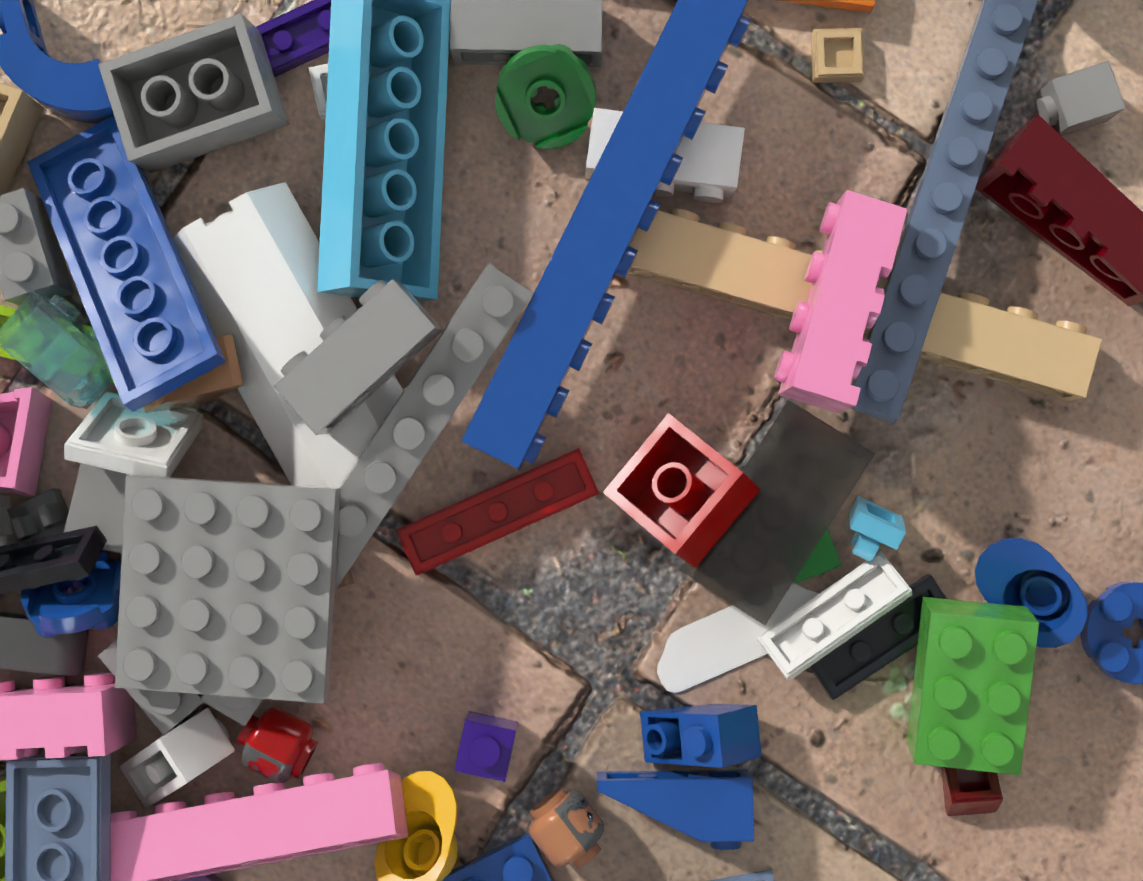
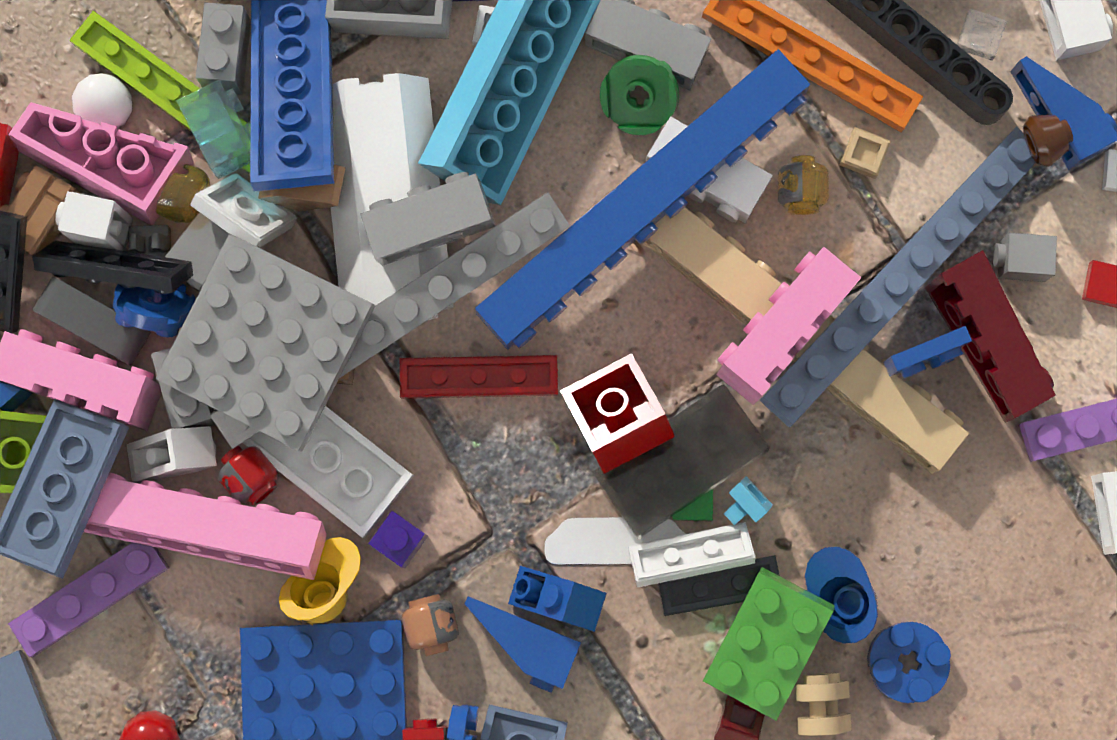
camera: 20 degrees right, 5 degrees down
(45, 447) = (179, 193): none -> clear yellow hair
(387, 693) = (339, 471): none -> white plate
(783, 124) = (803, 185): none -> clear yellow head
(1028, 253) = (936, 352): none -> blue plate
(1058, 719) = (823, 694): none -> tan brick

